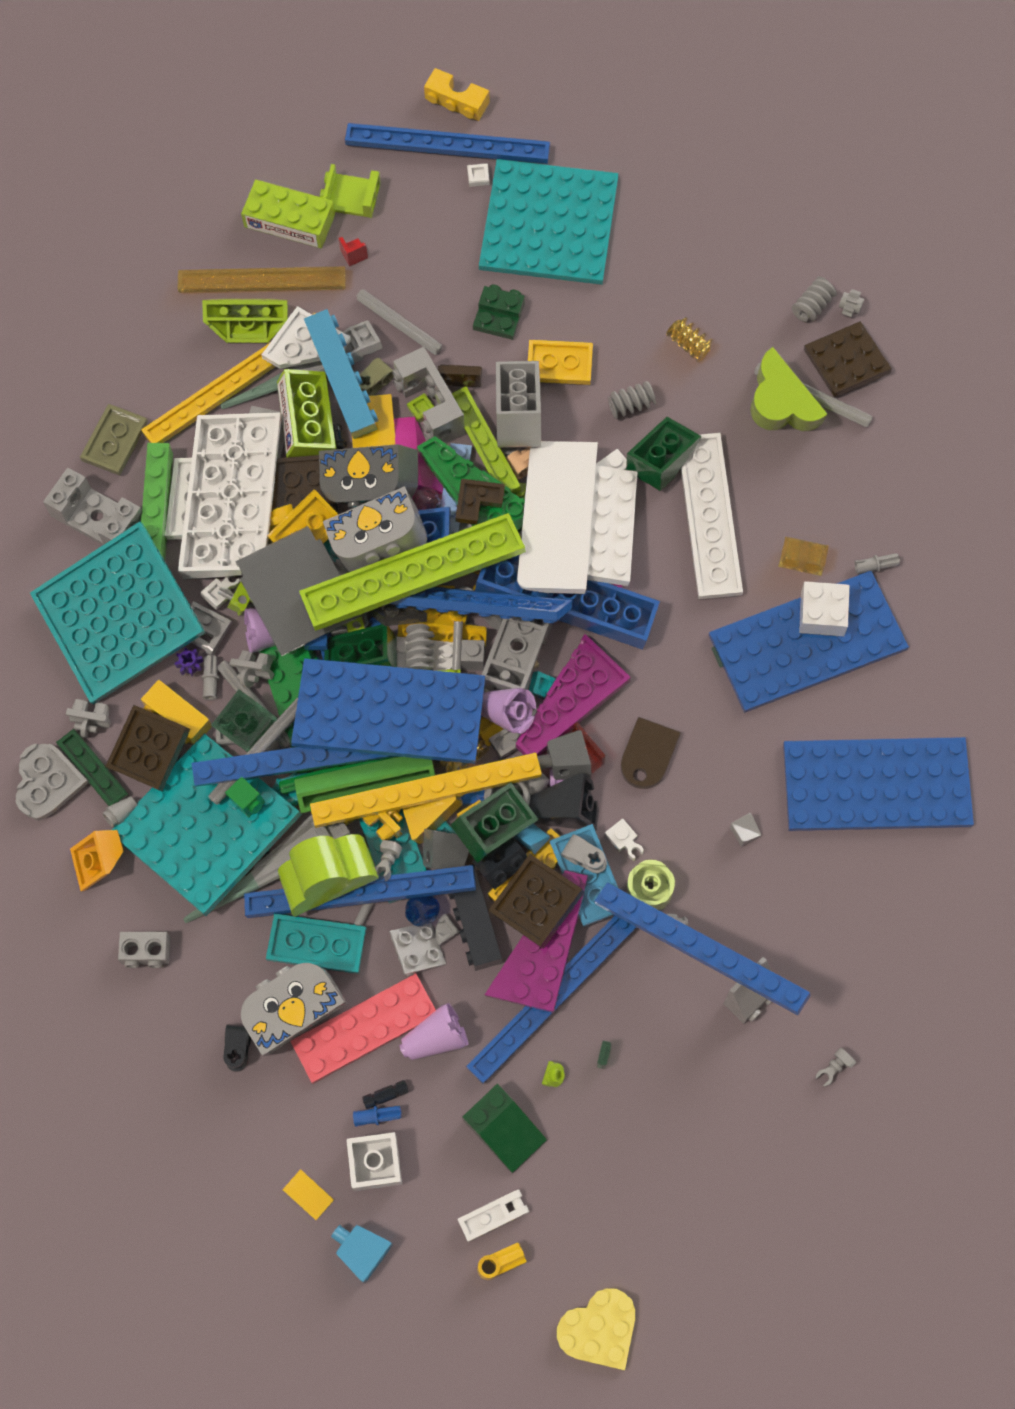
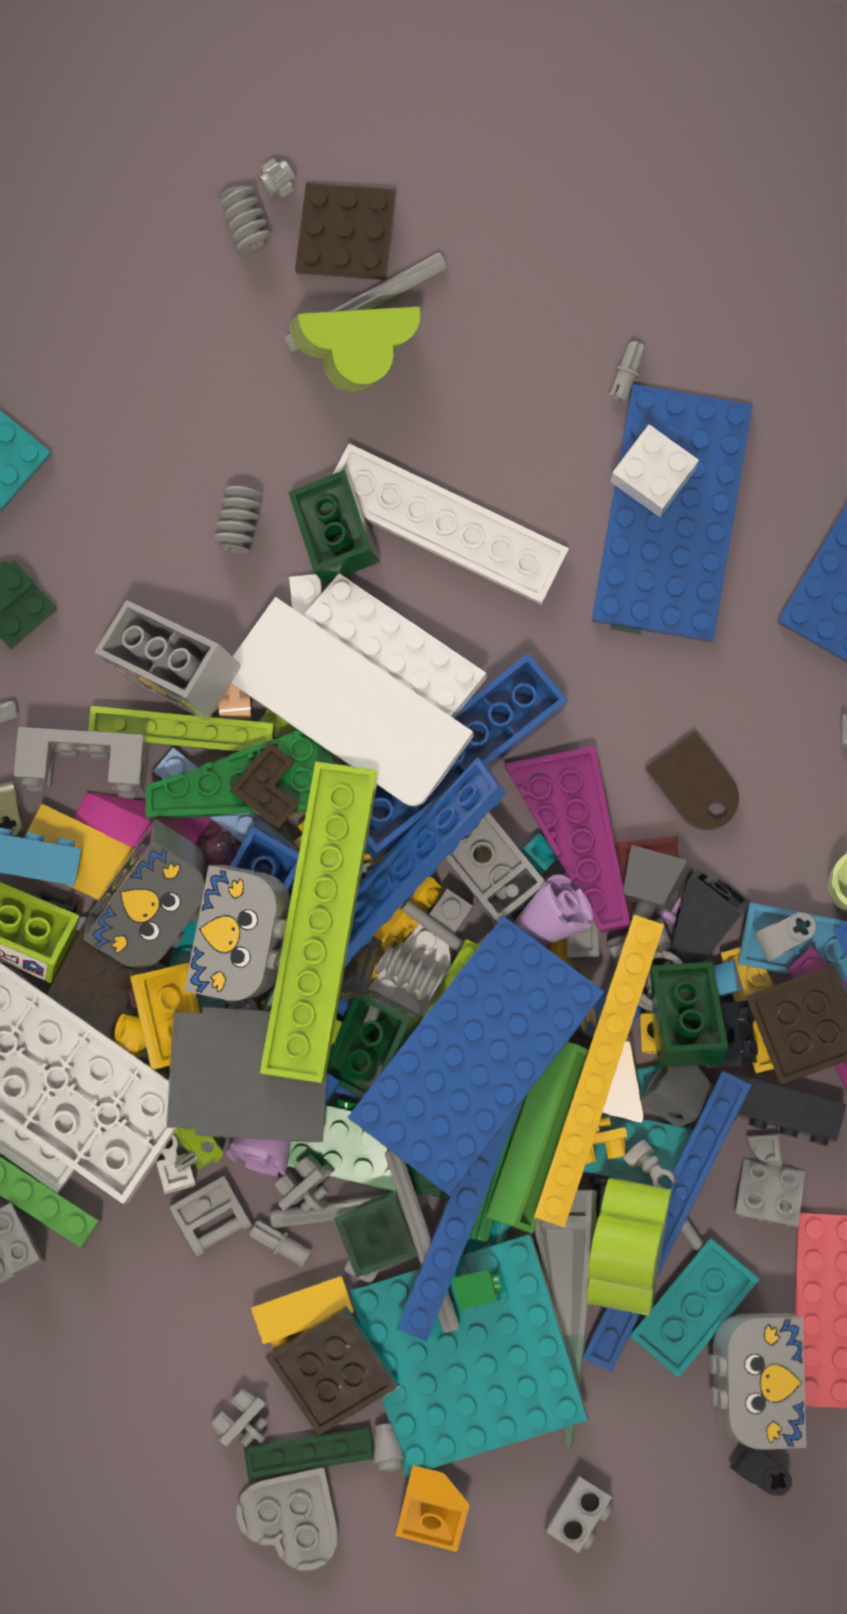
camera: 60 degrees left, 10 degrees up
(117, 613) = (131, 1310): teal plate -> none
(188, 656) = (254, 1260): dark purple gear -> none
(419, 406) = (79, 777): lime tile -> none
(422, 910) = (733, 1162): clear blue head -> none
(461, 375) = (69, 702): dark brown bracket -> none
(562, 361) = (128, 569): yellow plate -> none
(623, 837) = (778, 876): white plate -> none
(690, 339) = (201, 397): clear yellow piece -> none
(803, 556) = (568, 449): clear yellow brick -> none

